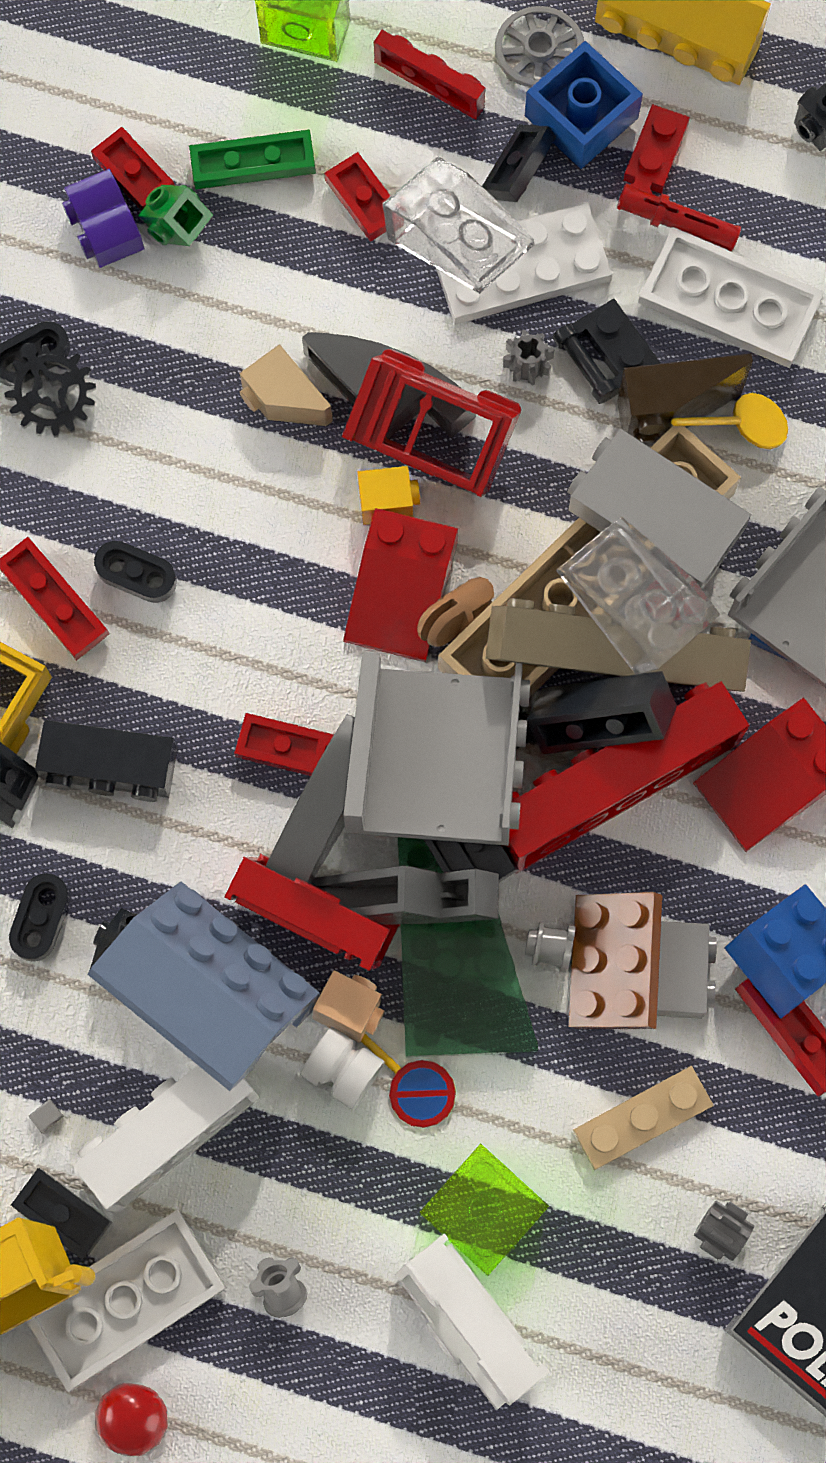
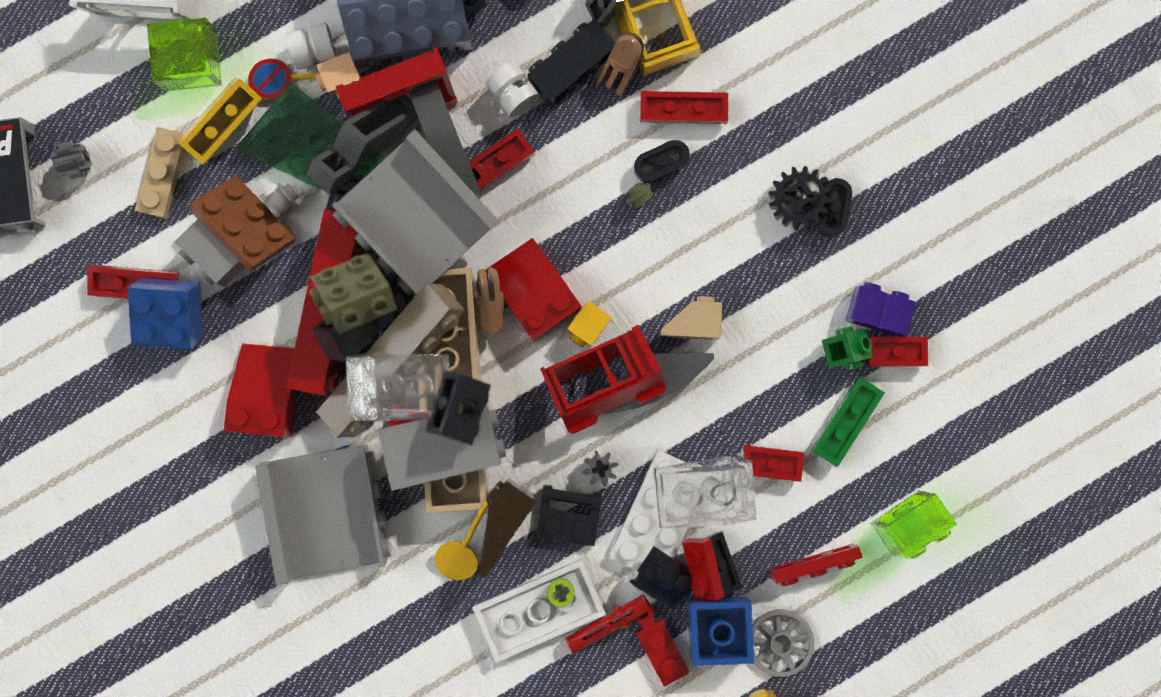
camera: 125 degrees right, 10 degrees up
(60, 699) = (623, 59): none -> medium nougat arm
(194, 563) = (639, 194): none -> olive plate
(194, 795) = (509, 85): none -> white wheel
(524, 1093) = (219, 120): none -> yellow brick
(537, 168) = (703, 569): none -> red plate
(581, 200) = (662, 578): none -> black plate
(584, 724) = (352, 293): none -> olive brick
(603, 506) = (445, 416): none -> black brick
(686, 274) = (569, 595): none -> lime bush

